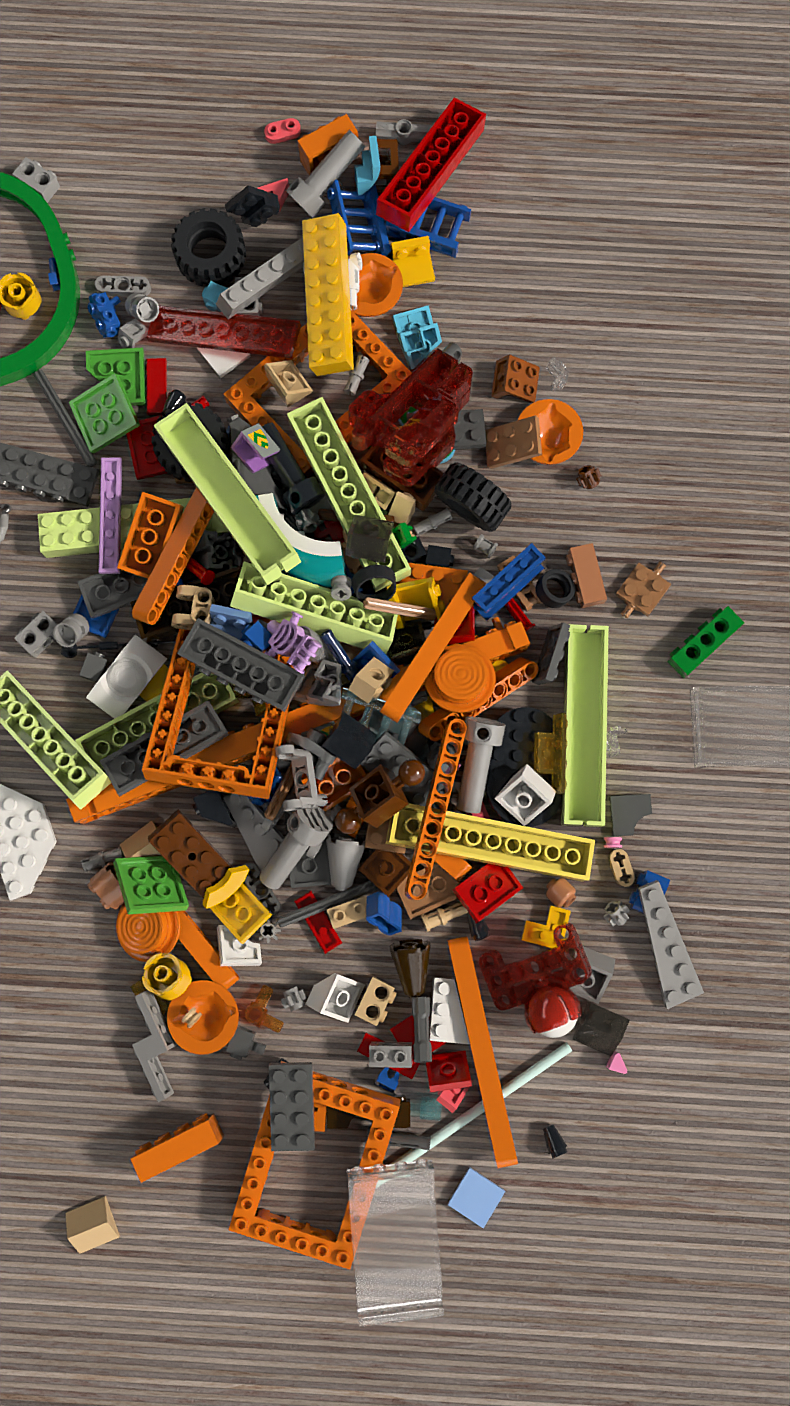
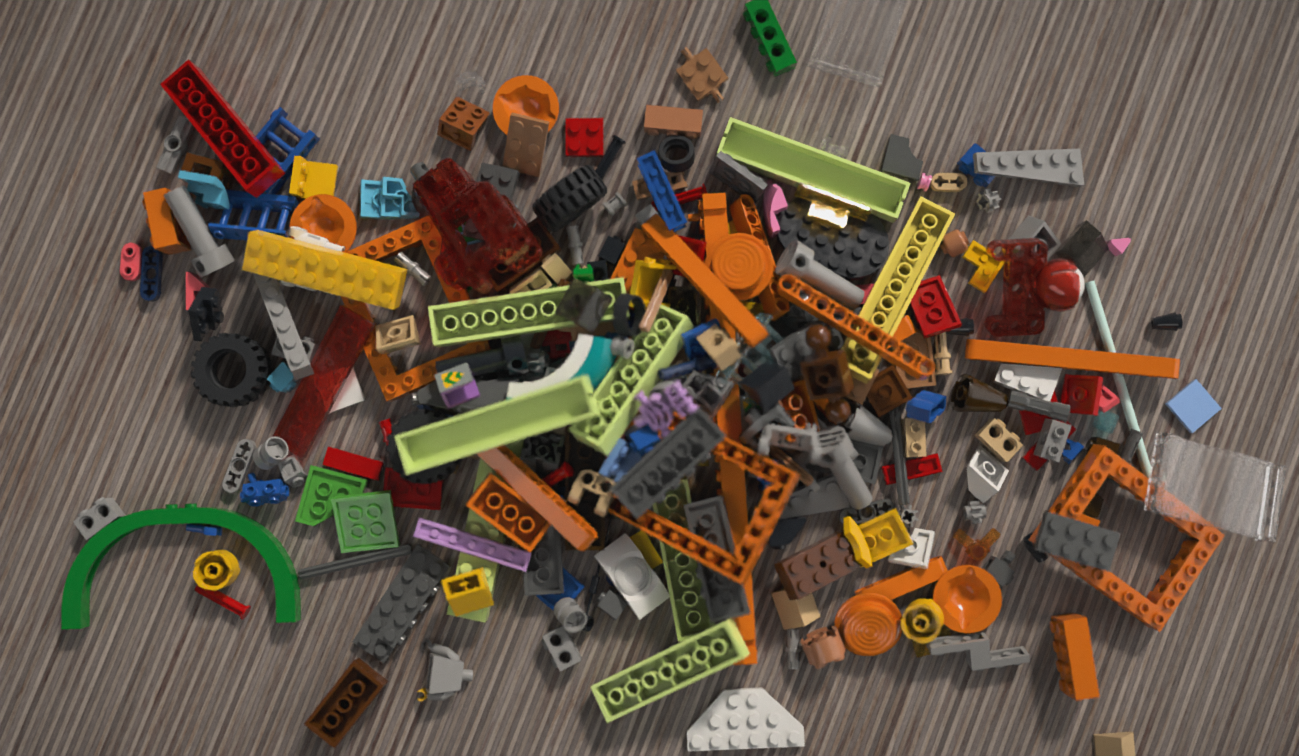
camera: 70 degrees left, 5 degrees up
(63, 523) = (468, 591): none -> yellow slope
(150, 885) = (836, 611): bright green plate -> none
(174, 398) = (377, 452): black cone -> none
(191, 1017) = (965, 609): tan bush -> none
(262, 150) = (144, 287): none -> dark blue beam
(525, 525) = (609, 156): none -> black axle
(526, 795) = (862, 243): white slope -> none
(535, 698) = (773, 204): none -> bright pink slope
(541, 497) = (584, 137): none -> red plate
(588, 477) = (580, 87): reddish brown gear -> none

